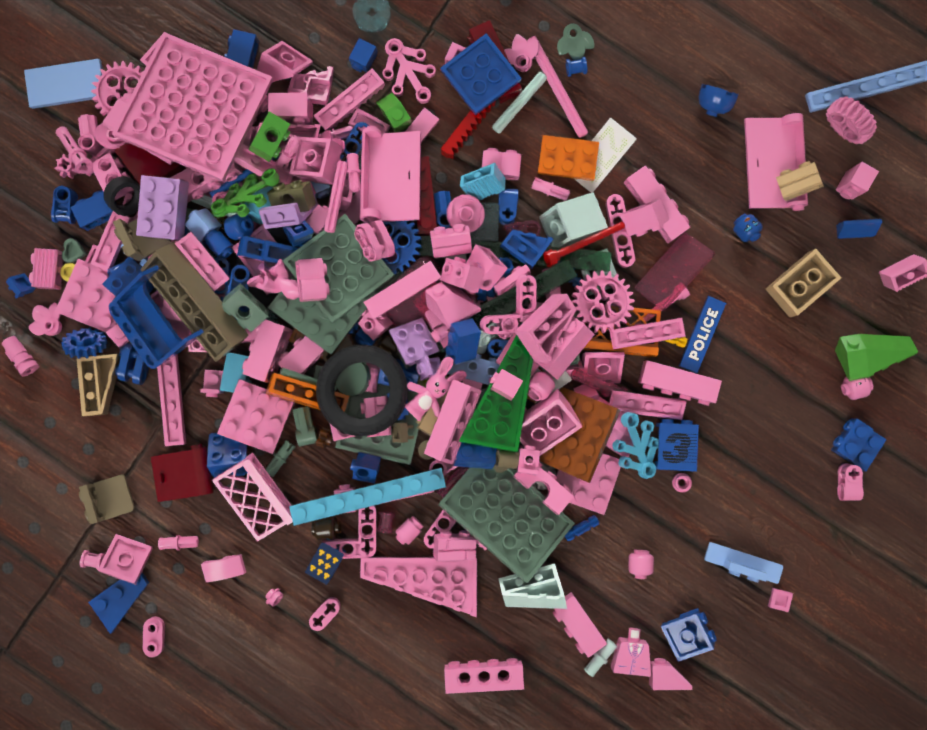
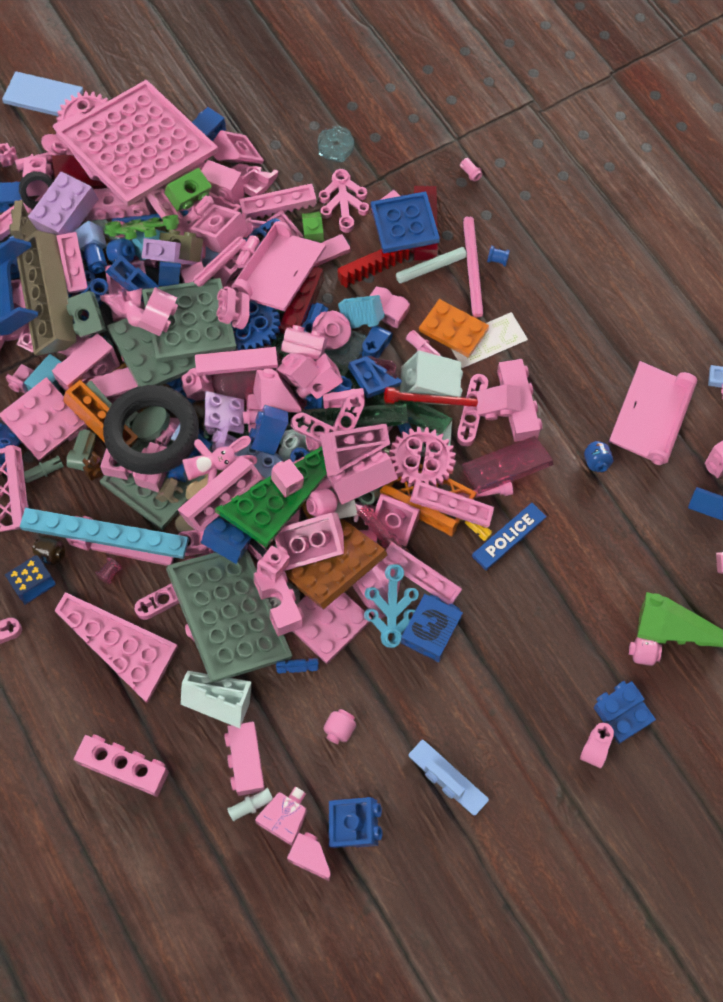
camera: 30 degrees right, 20 degrees down
(65, 137) = (17, 145): bright pink pin -> none
(87, 127) = (33, 140): bright pink piece -> none
(357, 543) = (70, 579): bright pink beam -> none
(362, 56) = (309, 171): blue brick -> none
(365, 467) = (118, 510): blue brick -> none
(409, 530) = (126, 588): bright pink brick -> none
(454, 546) = (161, 621): bright pink brick -> none
(506, 460) = (251, 554): dark tan piece -> none
(522, 50) = (453, 226): bright pink plate -> none
(574, 45) = (507, 239): sand green plate -> none
(680, 382) = (464, 568): bright pink brick -> none
(687, 485) = (421, 661): bright pink plate -> none
(716, 100) = (618, 333): blue cylinder -> none
(780, 599) = (470, 836): bright pink tile -> none
(799, 181) = (666, 431): tan brick -> none
(803, 283) = (630, 527): tan brick -> none

